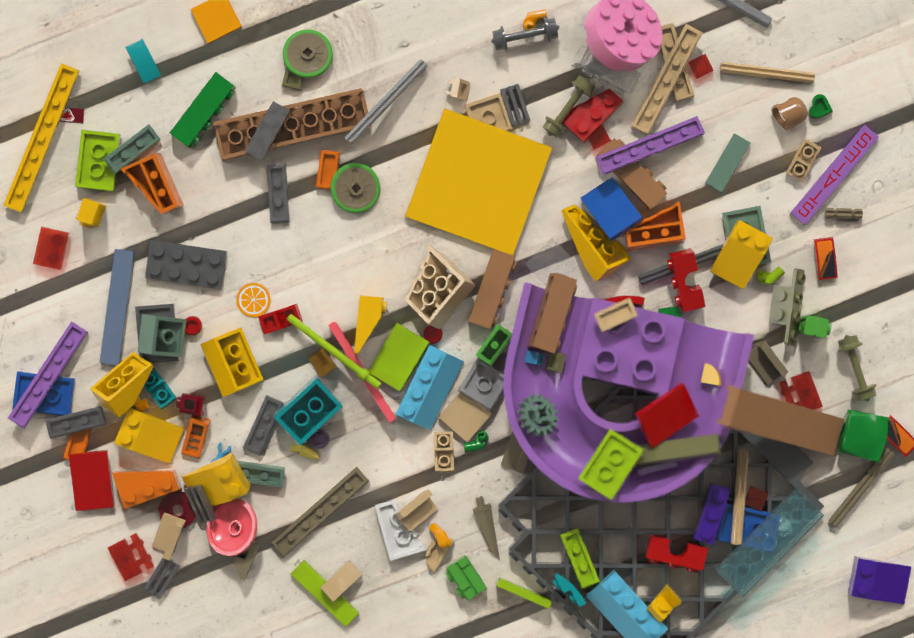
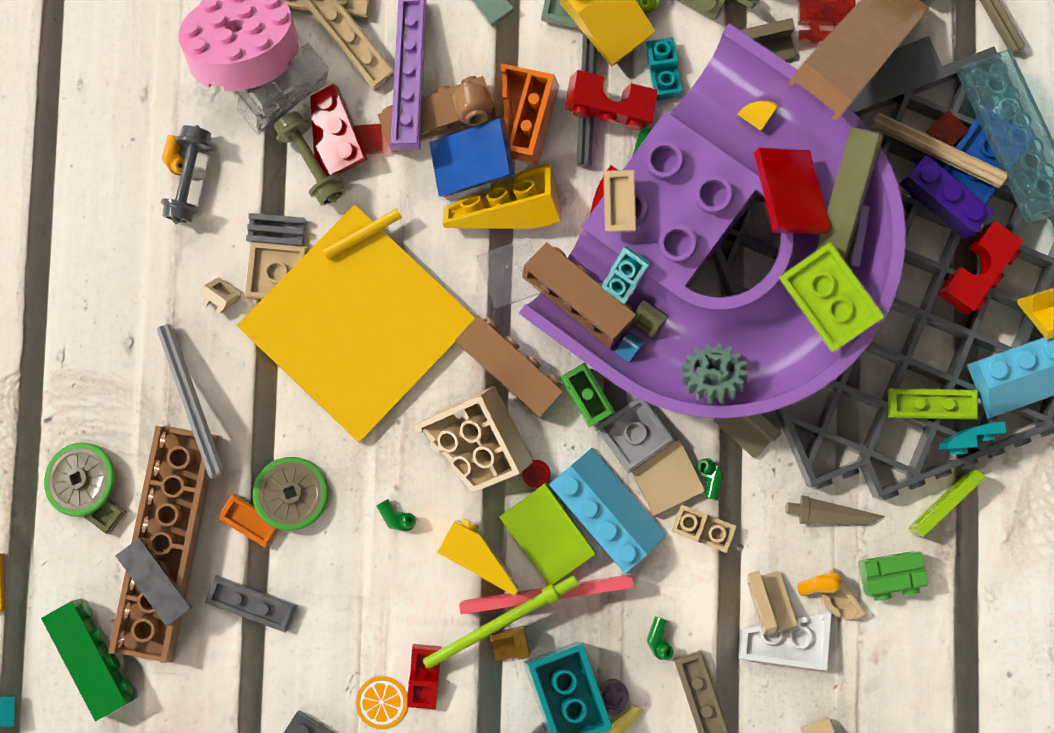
camera: 60 degrees left, 5 degrees down
(362, 452) = (657, 641): none -> green arm
(367, 259) = (396, 520): none -> green arm
(535, 161) = (362, 233): none -> yellow bar
(574, 337) = (625, 274): none -> teal slope
(645, 195) = (472, 103): none -> medium nougat head
(723, 304) = (664, 68): none -> teal slope

